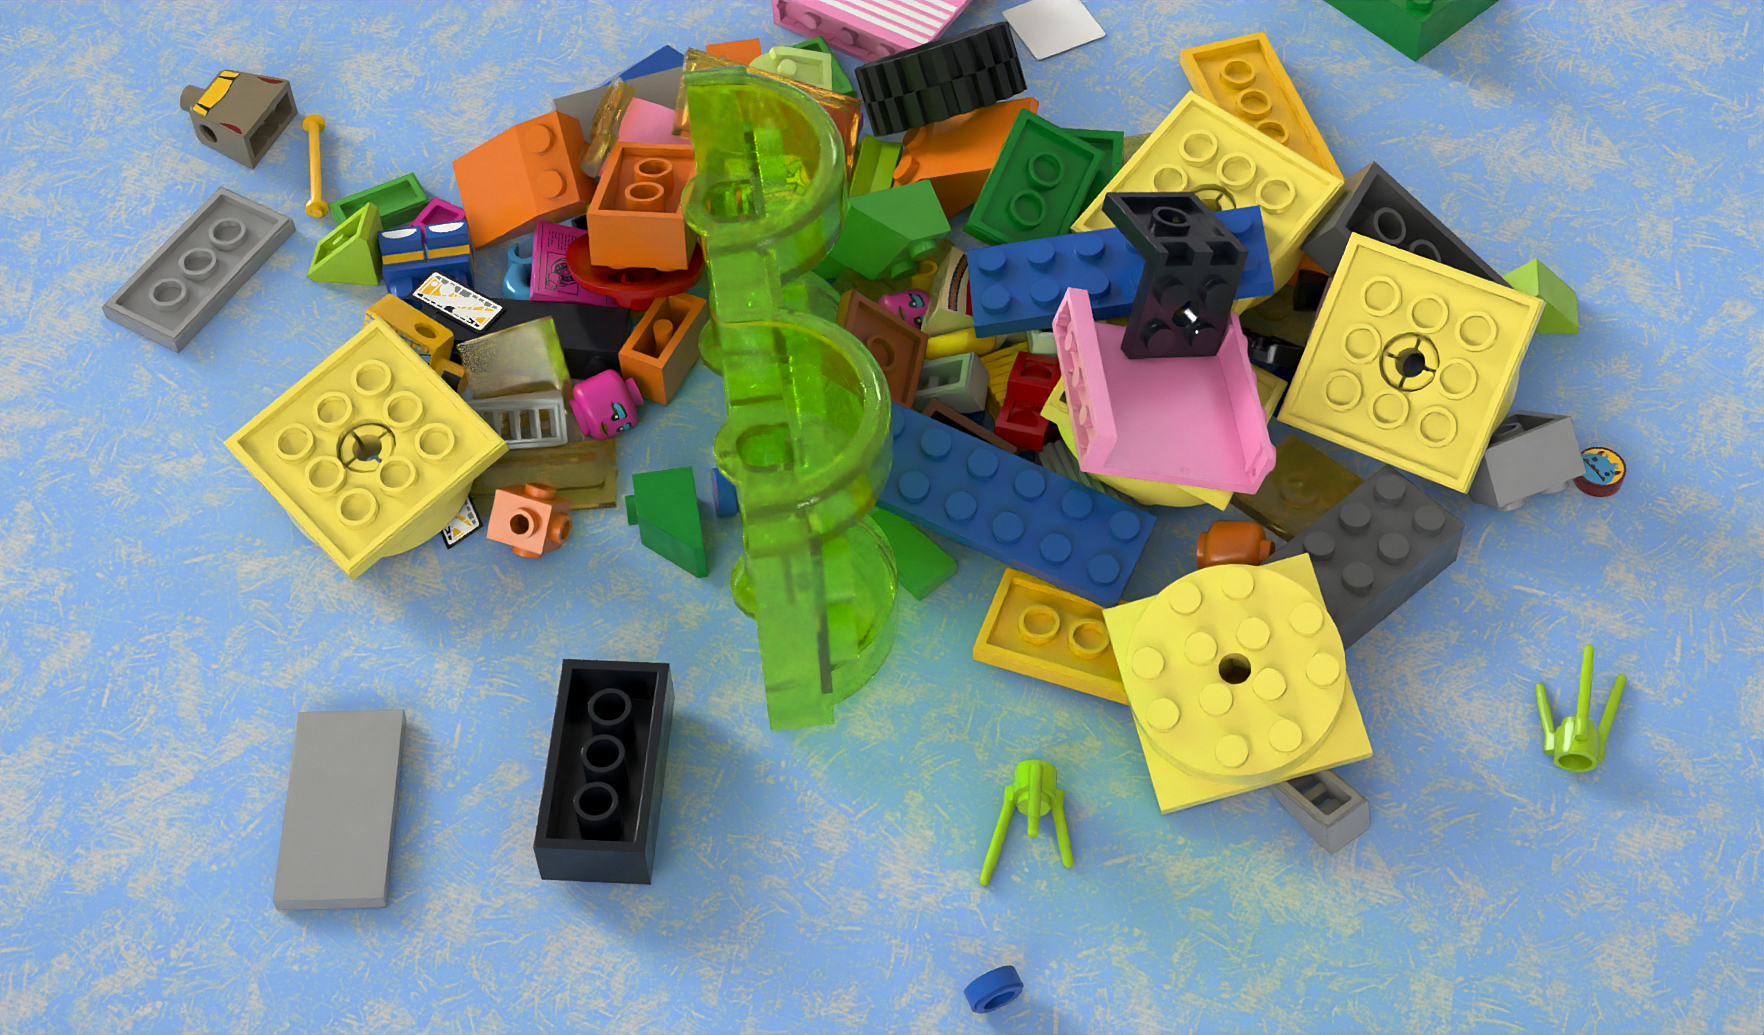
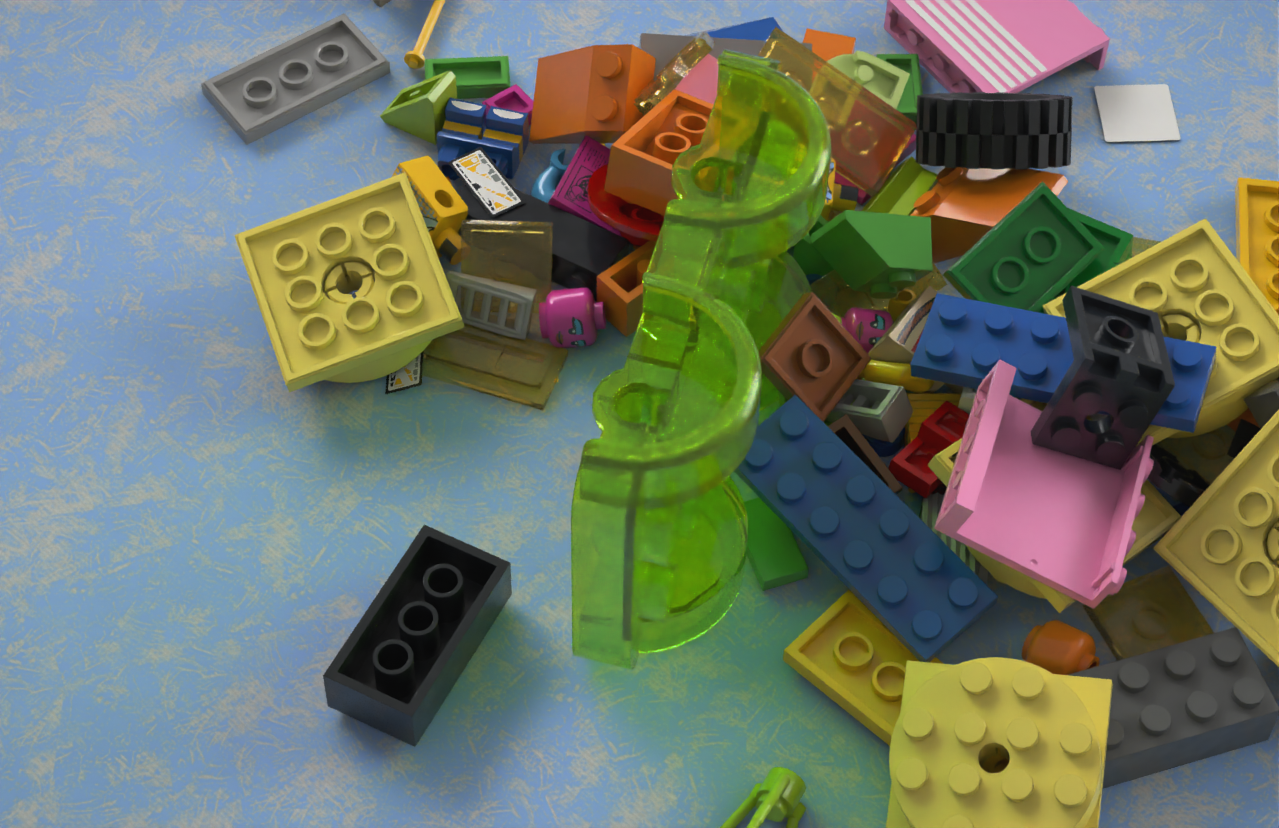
camera: 20 degrees right, 0 degrees up
(340, 810) = (194, 582): light grey tile -> none
(530, 519) = (459, 393): orange brick -> none
(669, 517) = (569, 428): green slope -> none

